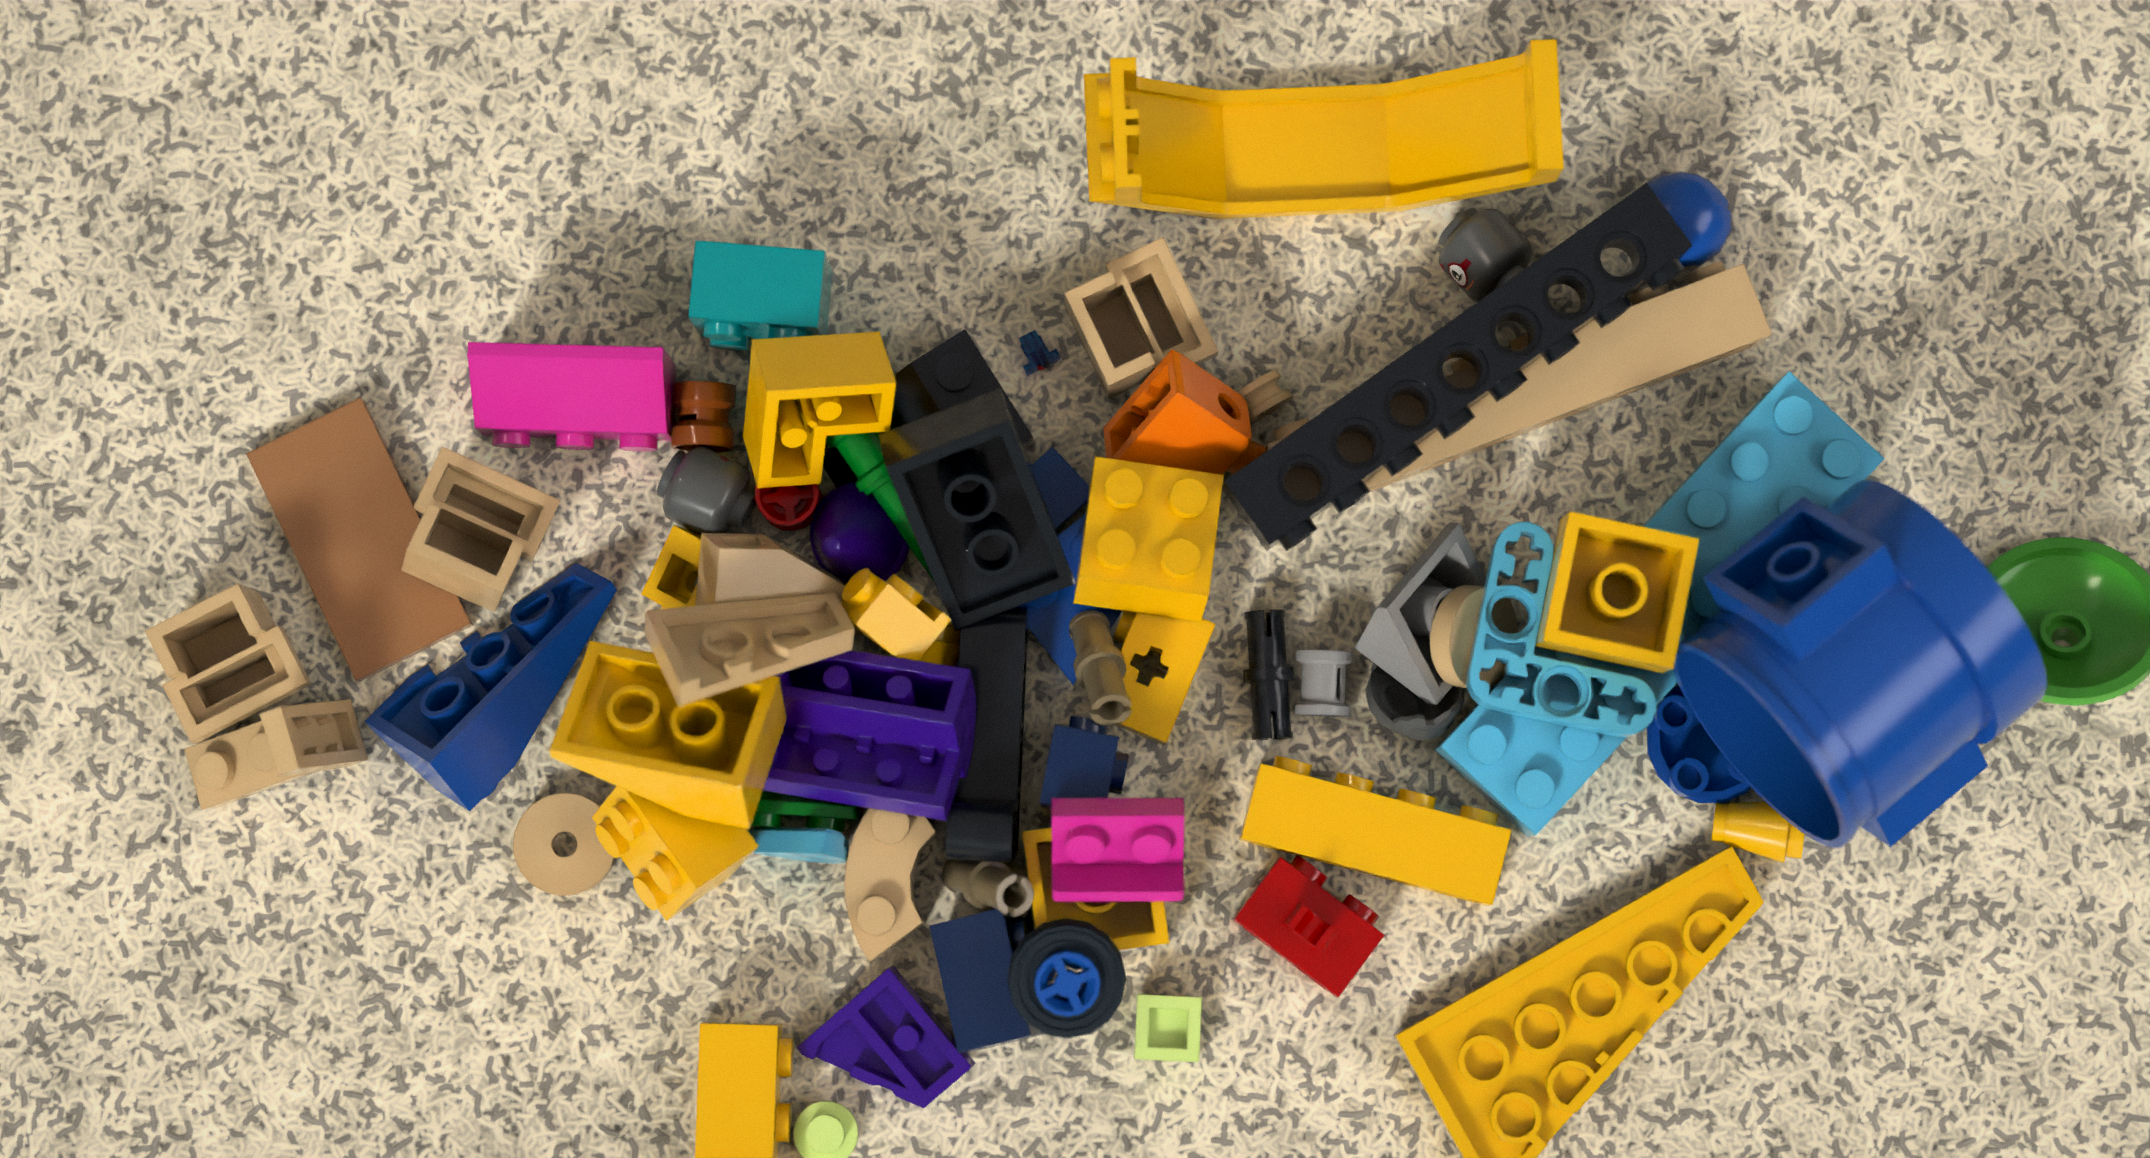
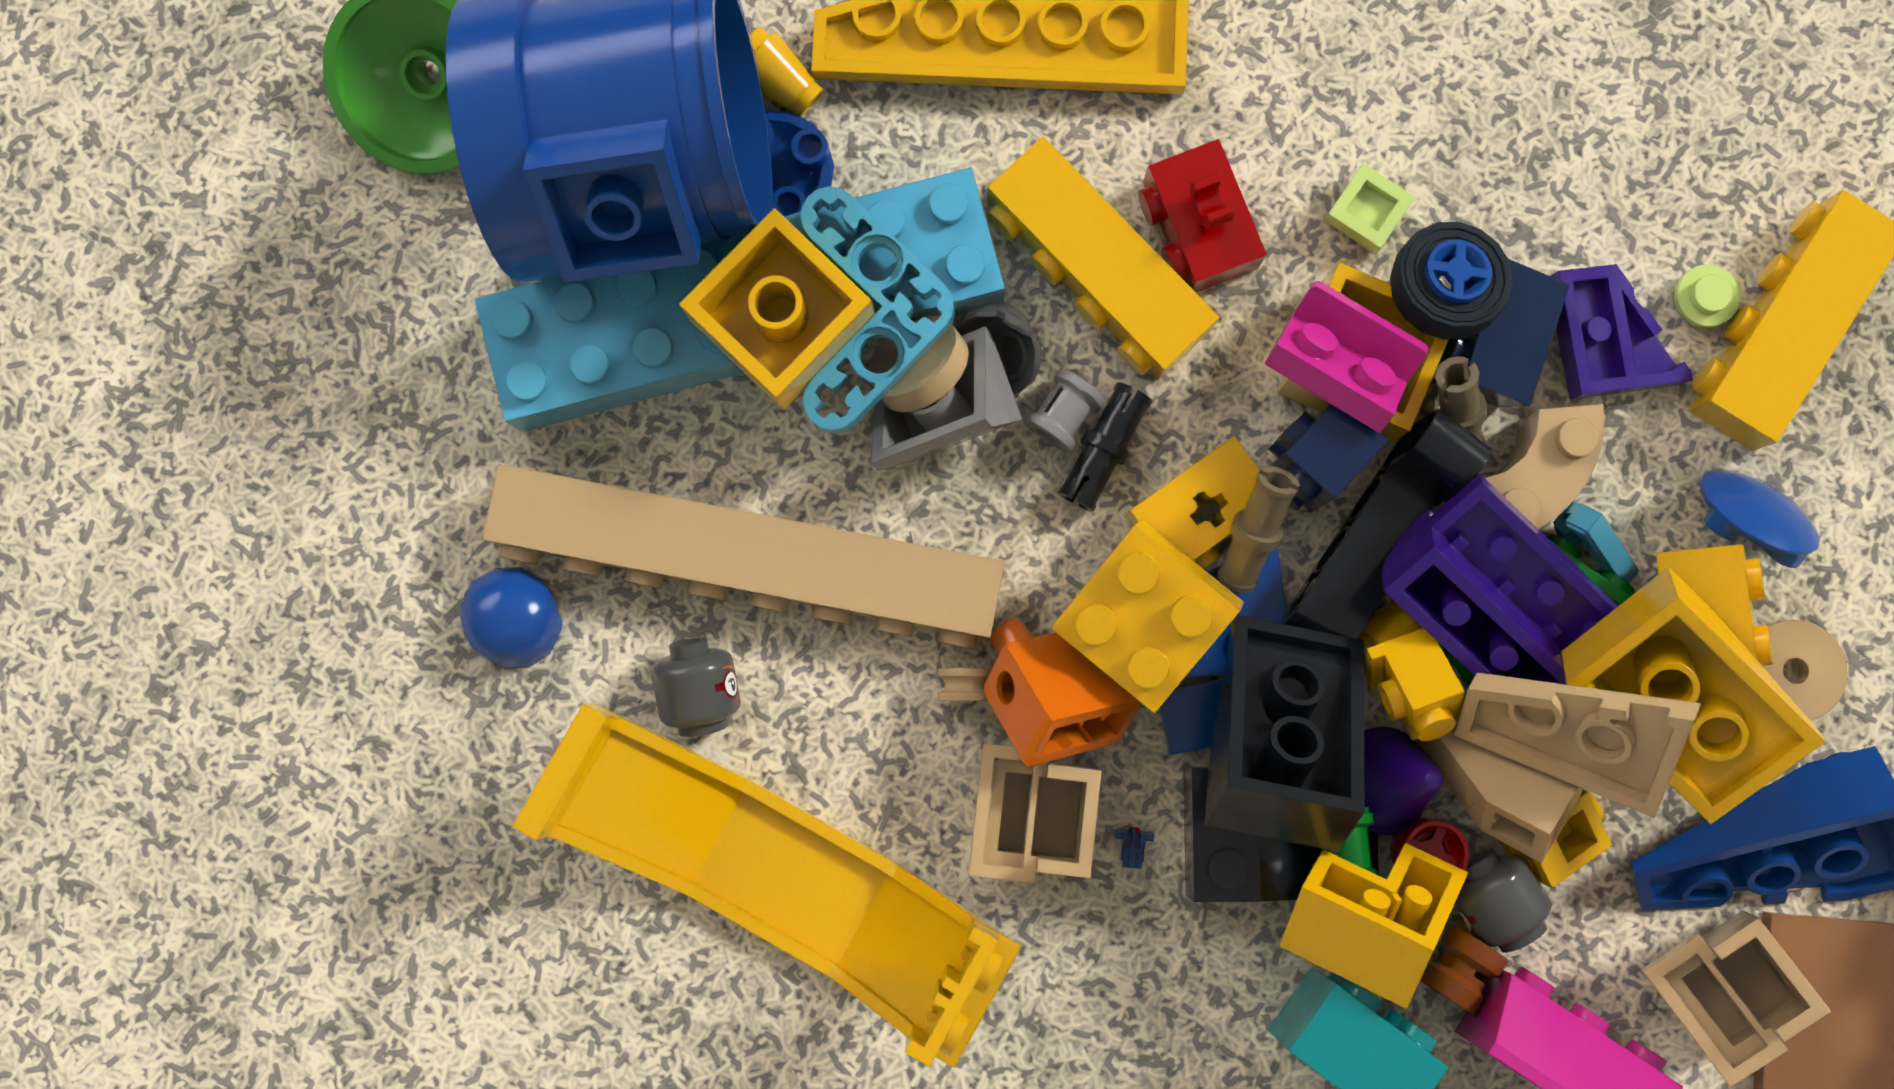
camera: 145 degrees left, 0 degrees up
(677, 954) = (1758, 513): none -> blue dish
(1634, 225) = (549, 594): black brick -> none

